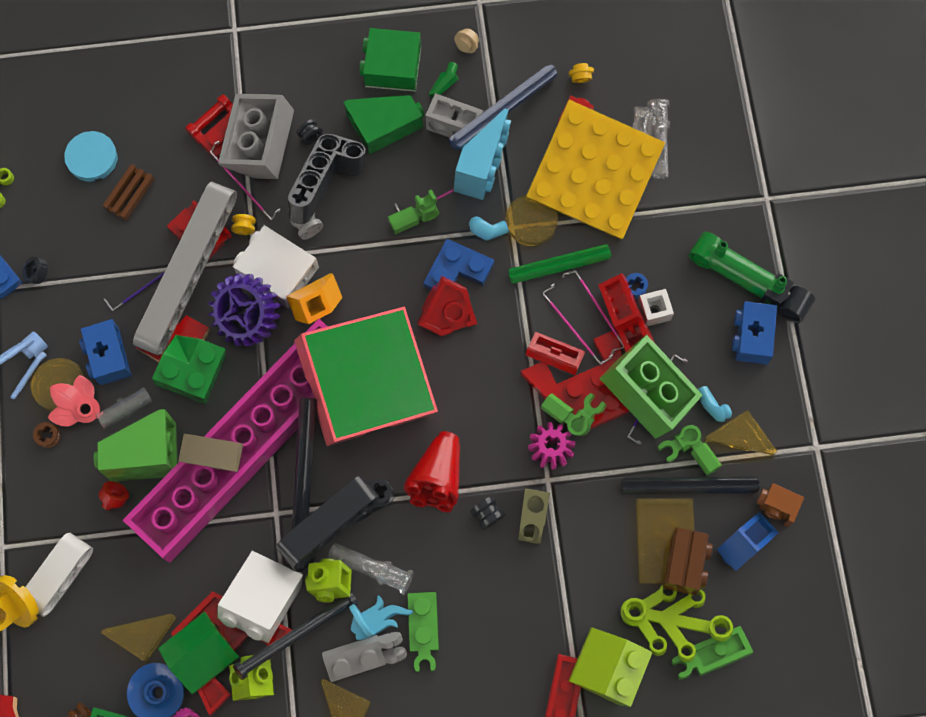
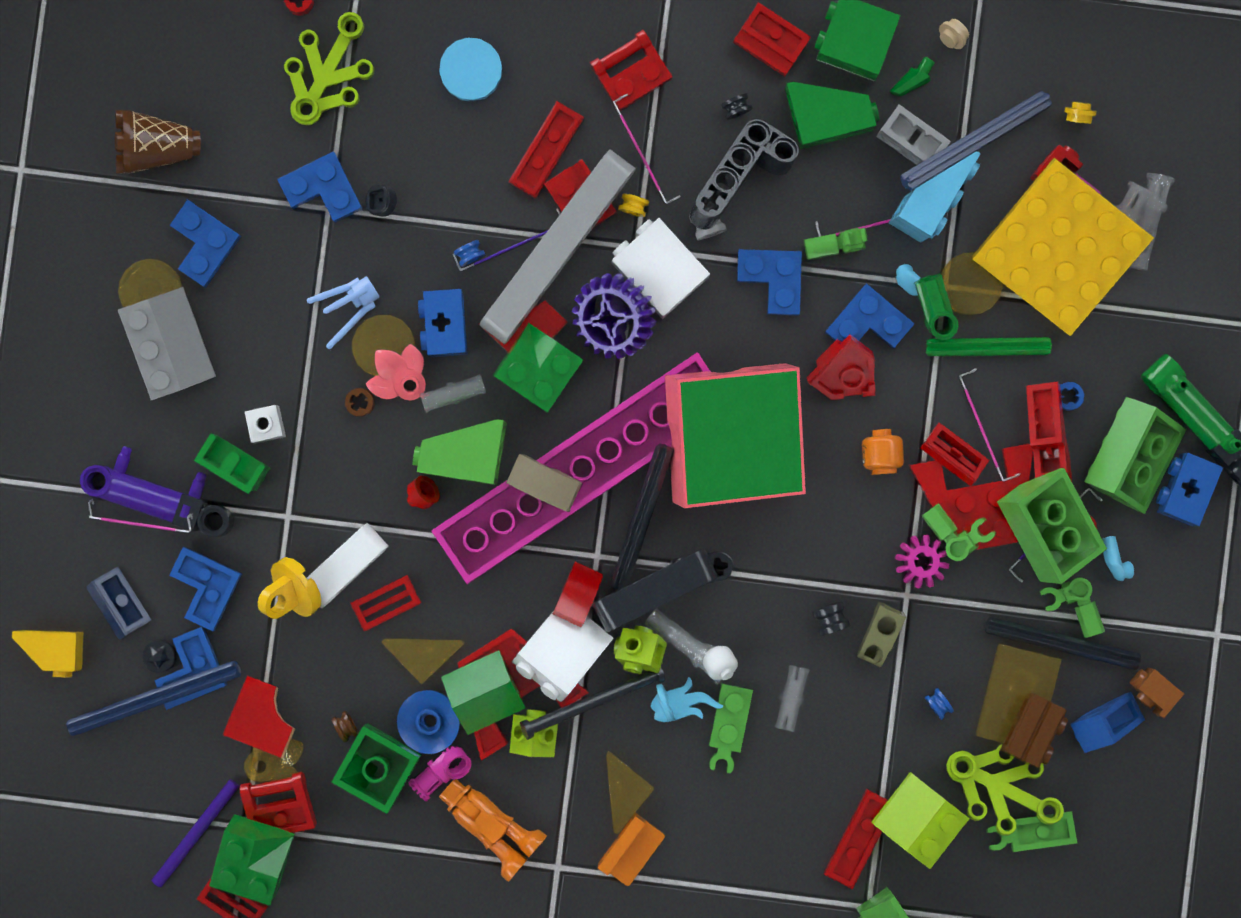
camera: 15 degrees right, 15 degrees up
(104, 608) = (410, 590): none -> red tile
(116, 293) = (469, 253): none -> blue bush
(120, 187) = (525, 108): reddish brown tile -> none
(164, 201) = (546, 149): none -> red tile
(257, 135) = (673, 98): light grey slope -> none
(261, 547) = (578, 594): none -> red slope
(315, 299) = (697, 324): light orange slope -> none
(325, 77) = (771, 39): none -> red plate
(363, 655) = (659, 739): light grey hinge -> none
(371, 246) = (781, 273): none -> blue plate
(400, 572) = (720, 663): none -> white piece
(436, 474) = (787, 562): red cone -> none
(471, 590) = (792, 698): none -> clear pin
(495, 366) = (883, 452): none -> orange head
(505, 237) = (936, 304): none -> green piece
(598, 307) = (1019, 411): dark pink piece -> none
(599, 562) = (939, 704): none -> blue bush
(657, 300) = (1094, 430): white plate -> none
(703, 316) = (1135, 454): none -> bright green slope
(743, 434) = (1139, 600): clear yellow tile -> none

